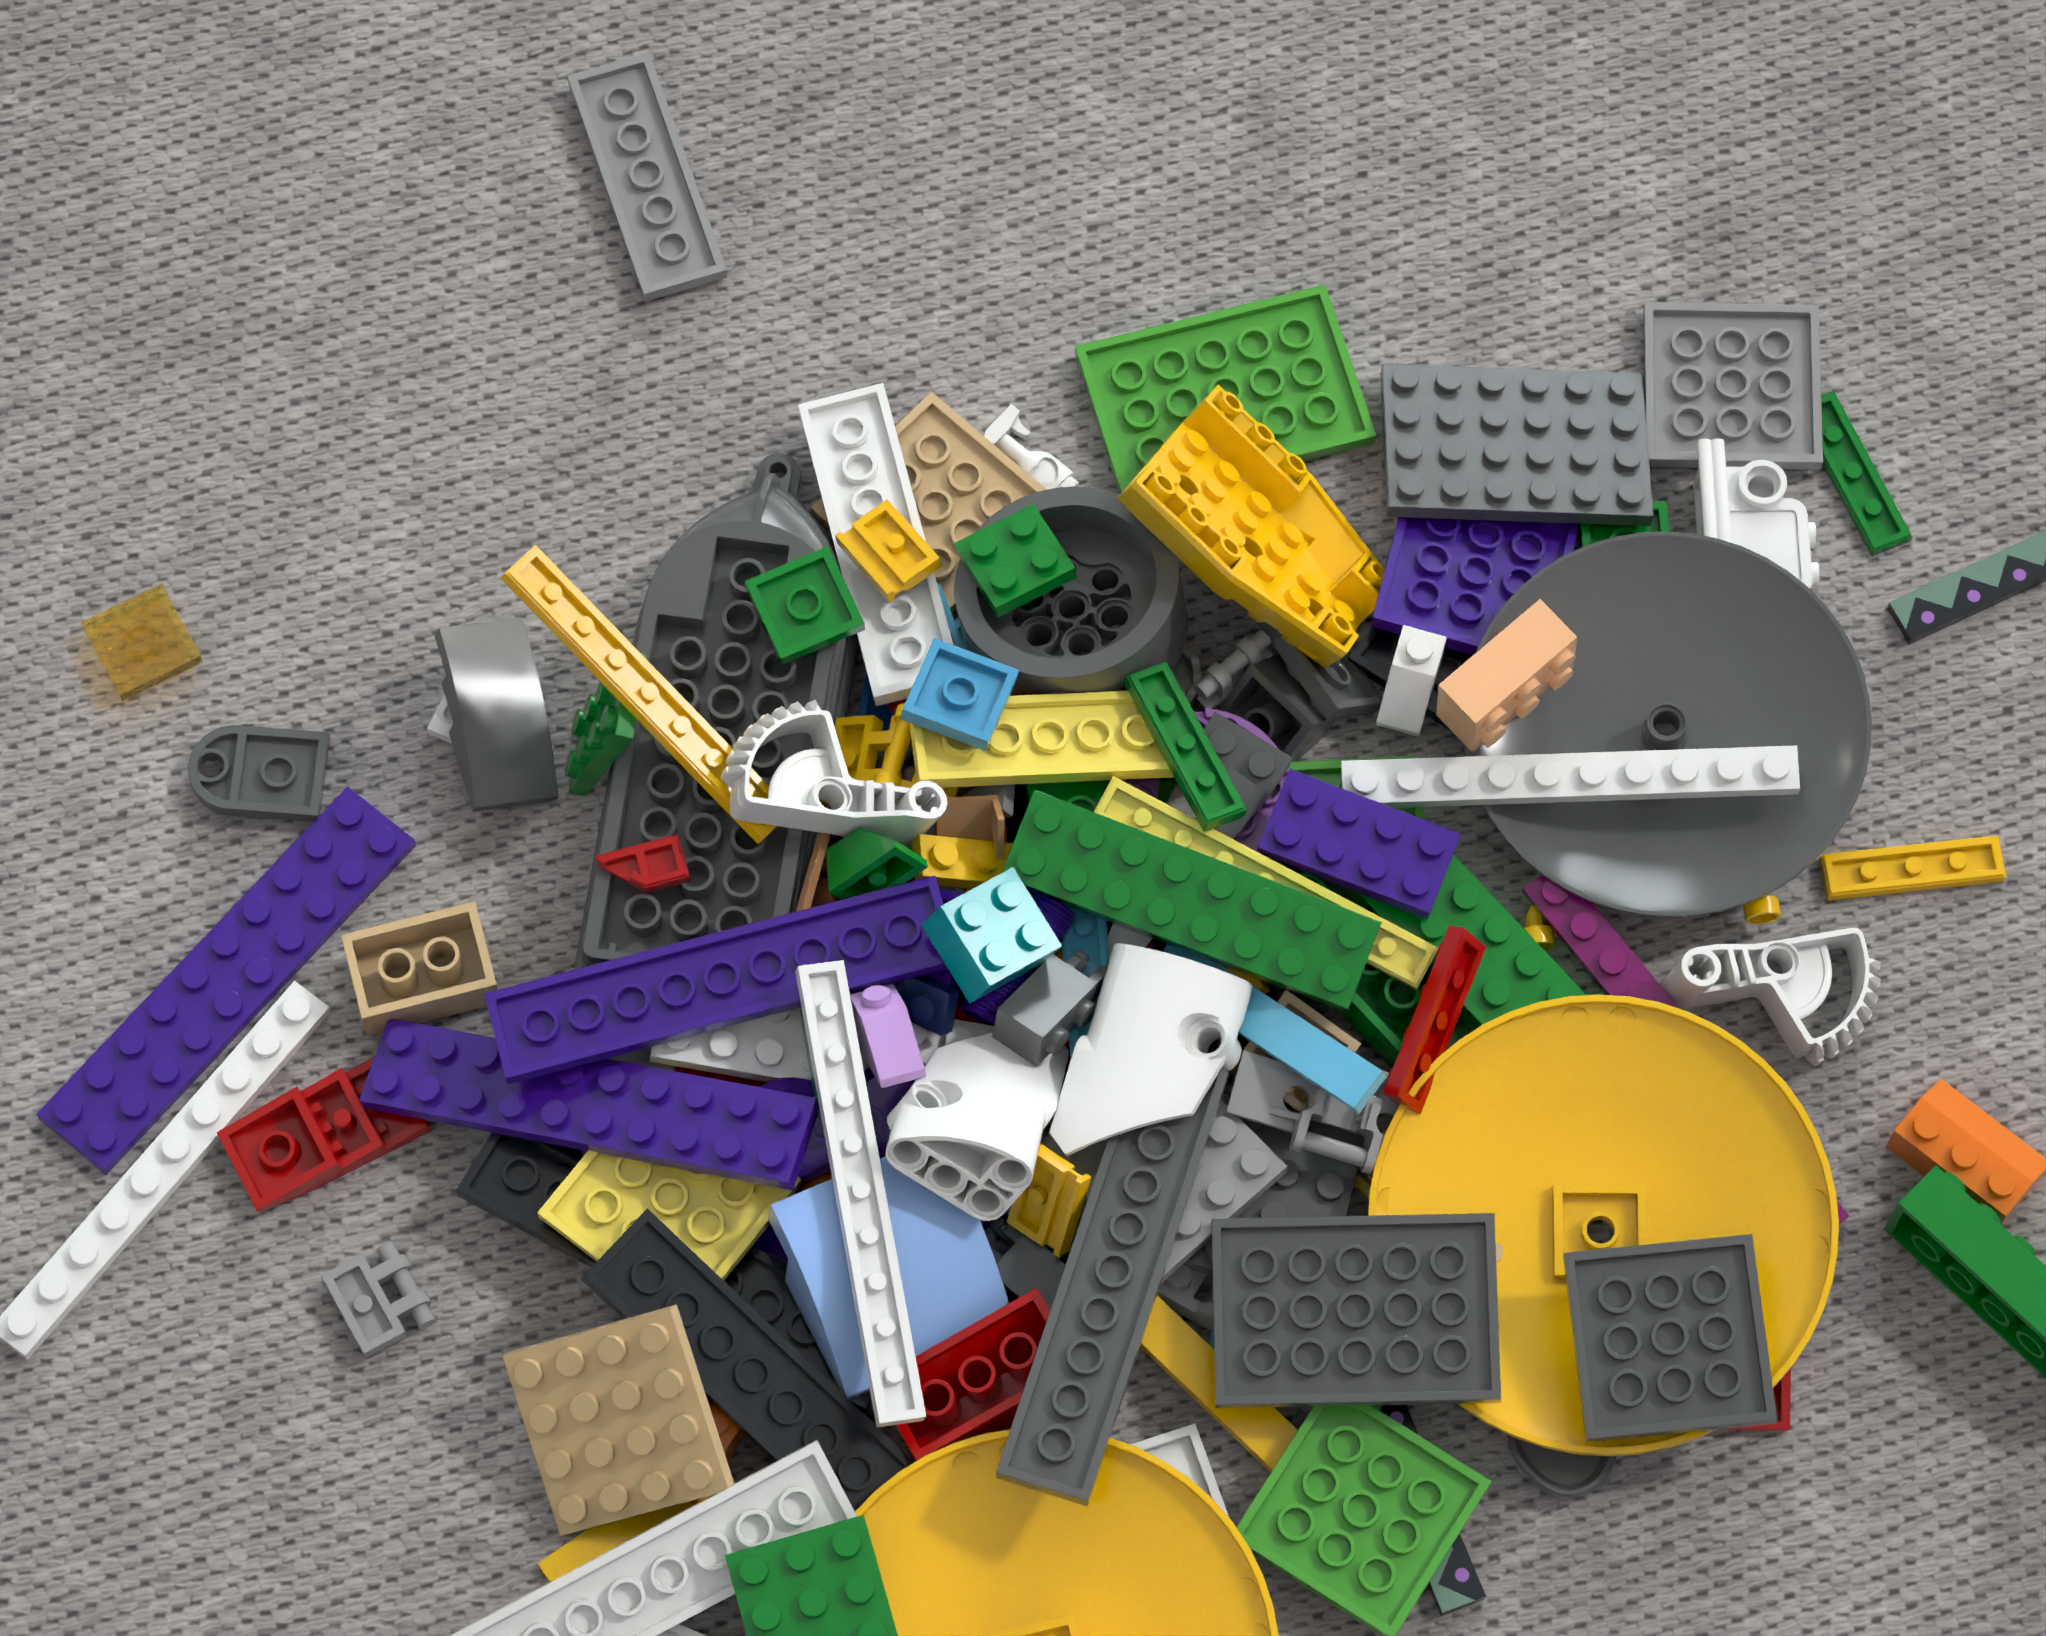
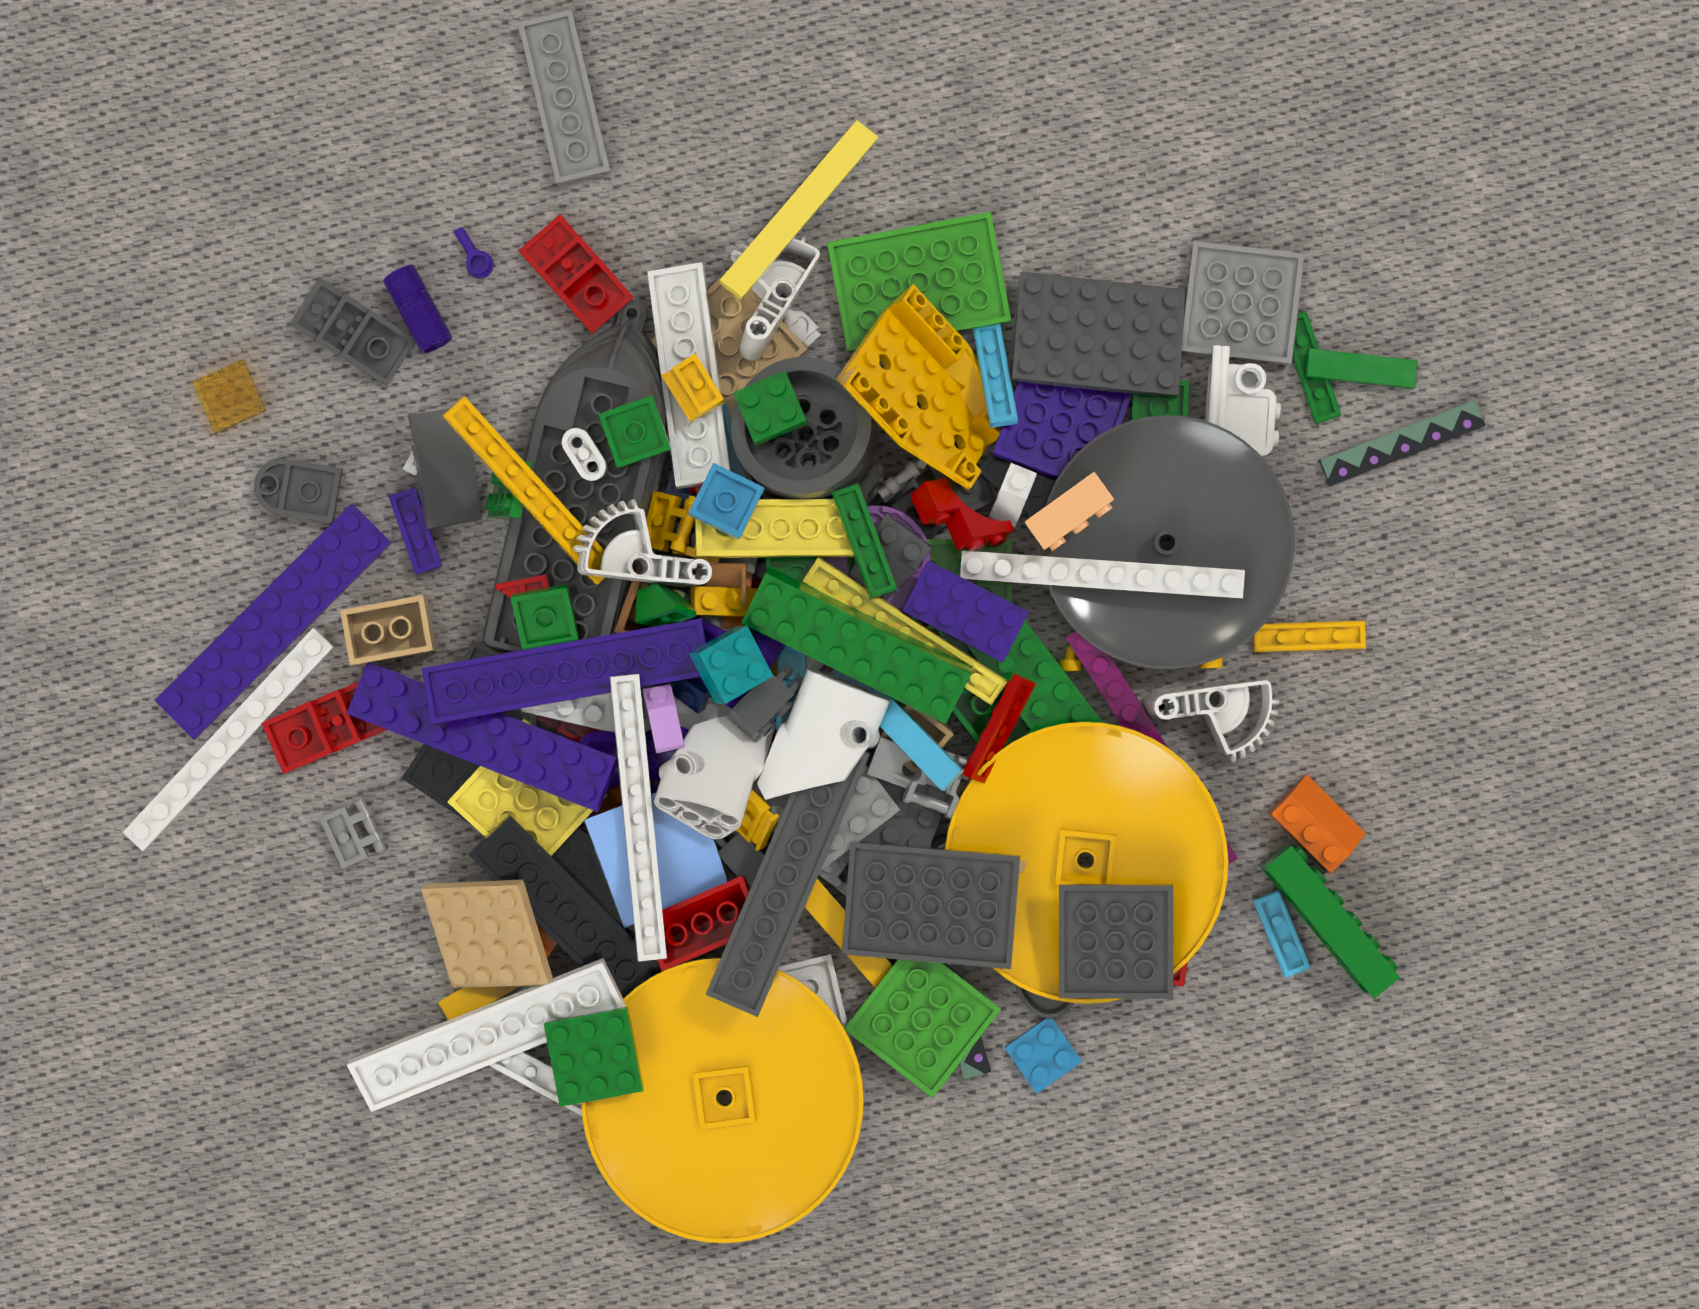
camera: 10 degrees right, 20 degrees up
(336, 533) = (352, 331): none -> dark grey slope
(442, 493) = (420, 312): none -> dark purple piece
(453, 820) = (413, 529): none -> dark purple plate
(529, 419) = (478, 263): none -> dark purple plate
(681, 894) = (544, 617): none -> green plate
(684, 422) = (576, 274): none -> red slope
(728, 647) = (584, 455): none -> white plate
(999, 407) = (770, 313): none -> white arm
(1026, 298) = (798, 210): none -> light yellow tile
(1347, 726) = (969, 530): none -> red arch
(1361, 512) = (995, 375): none -> medium azure tile
(1569, 1562) = (1043, 1054): none -> dark azure plate
(1932, 465) = (1361, 368): none -> green tile
(1939, 1333) = (1281, 933): none -> medium azure tile

